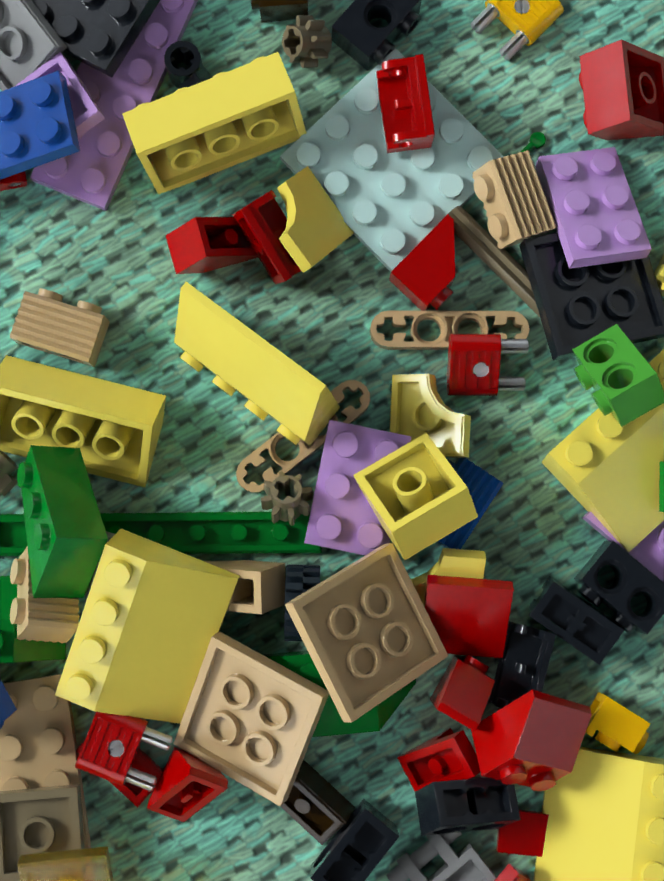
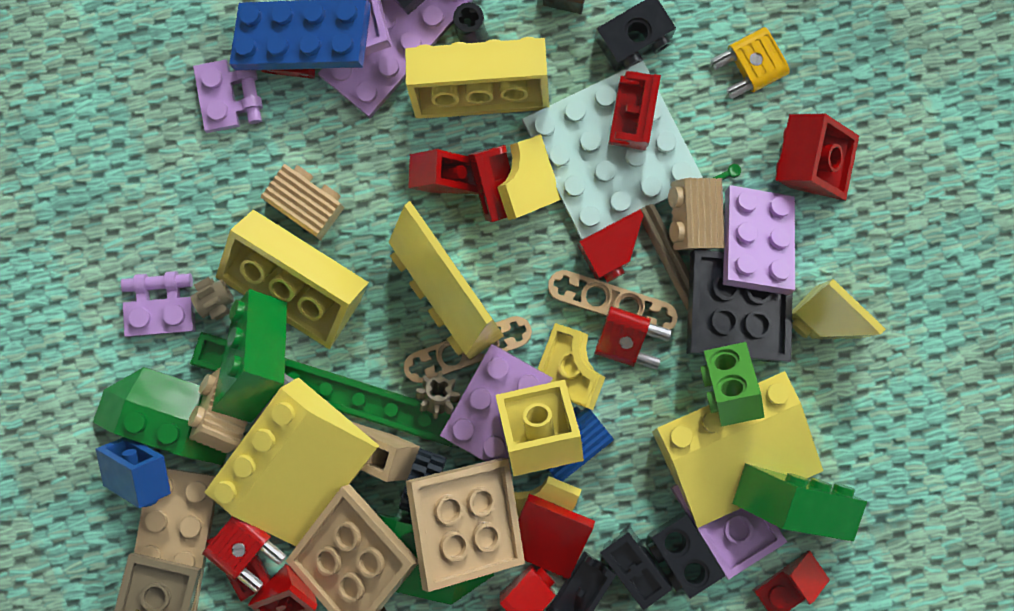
camera: 25 degrees right, 0 degrees up
(307, 41) = (573, 33): dark tan gear -> none

